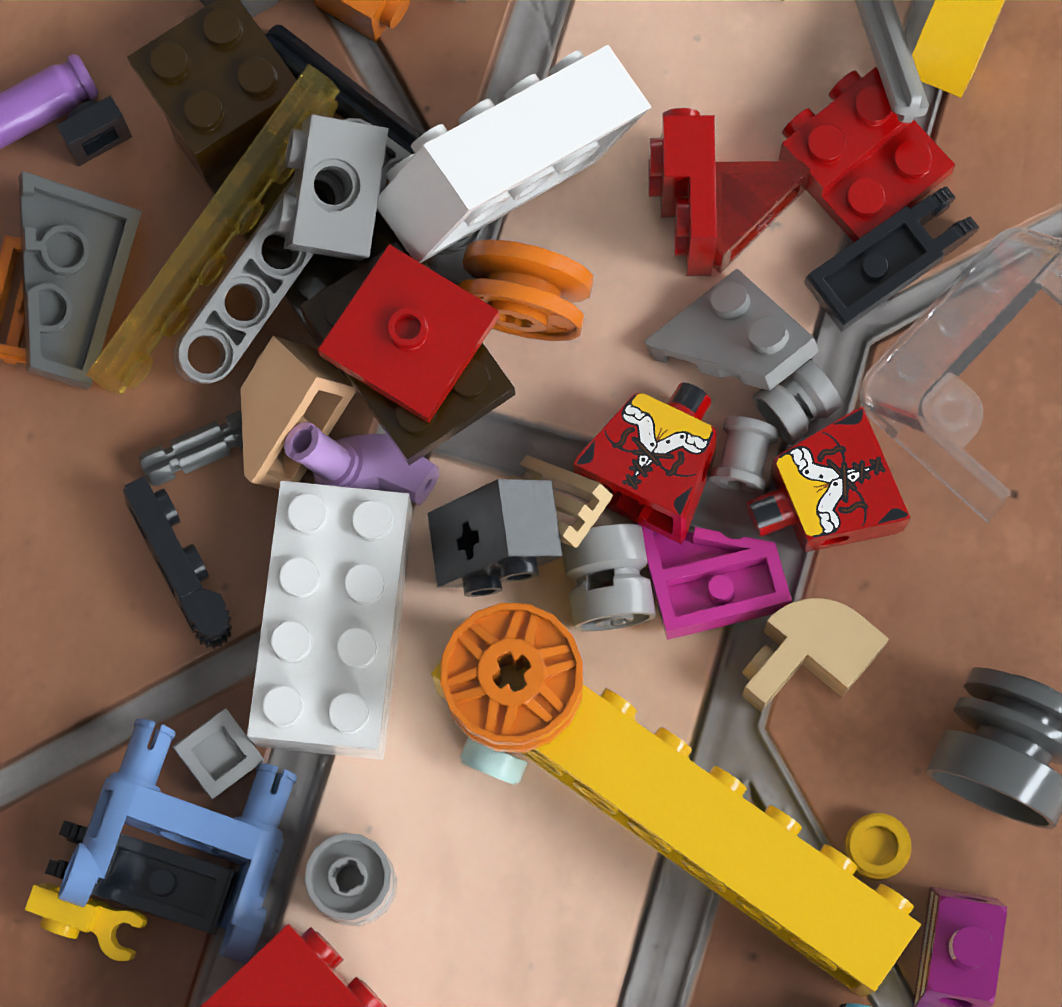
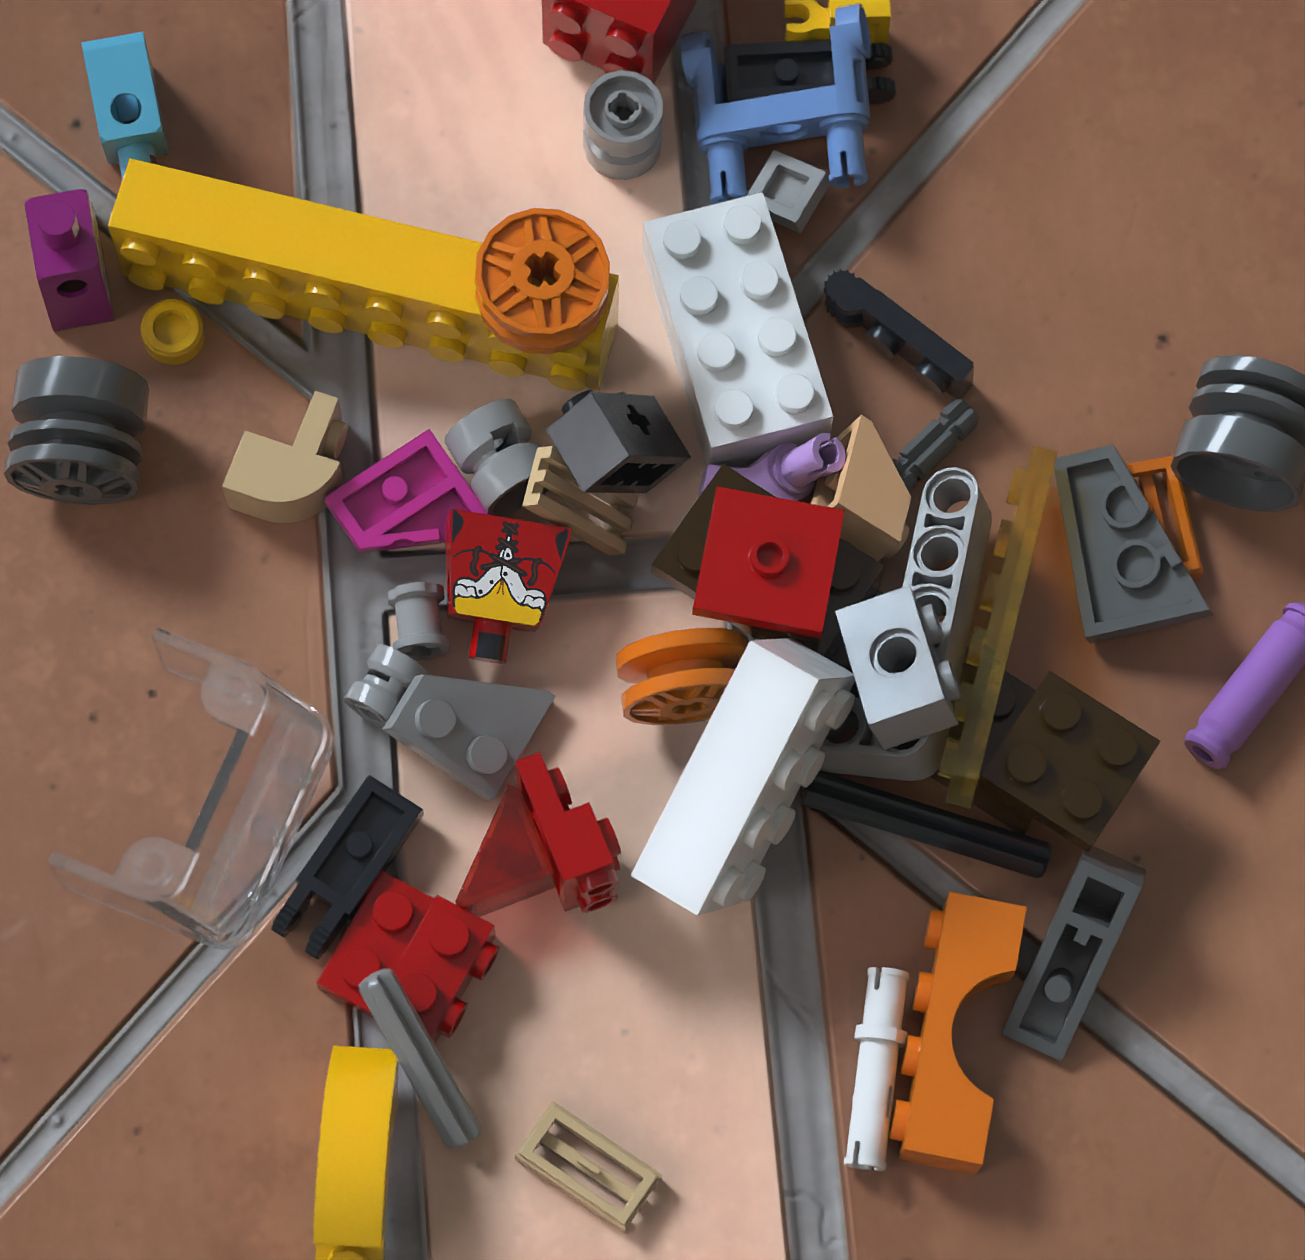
camera: 150 degrees right, 5 degrees down
(93, 129) = (1170, 699): black plate -> none
(832, 489) = (324, 617): torso -> none

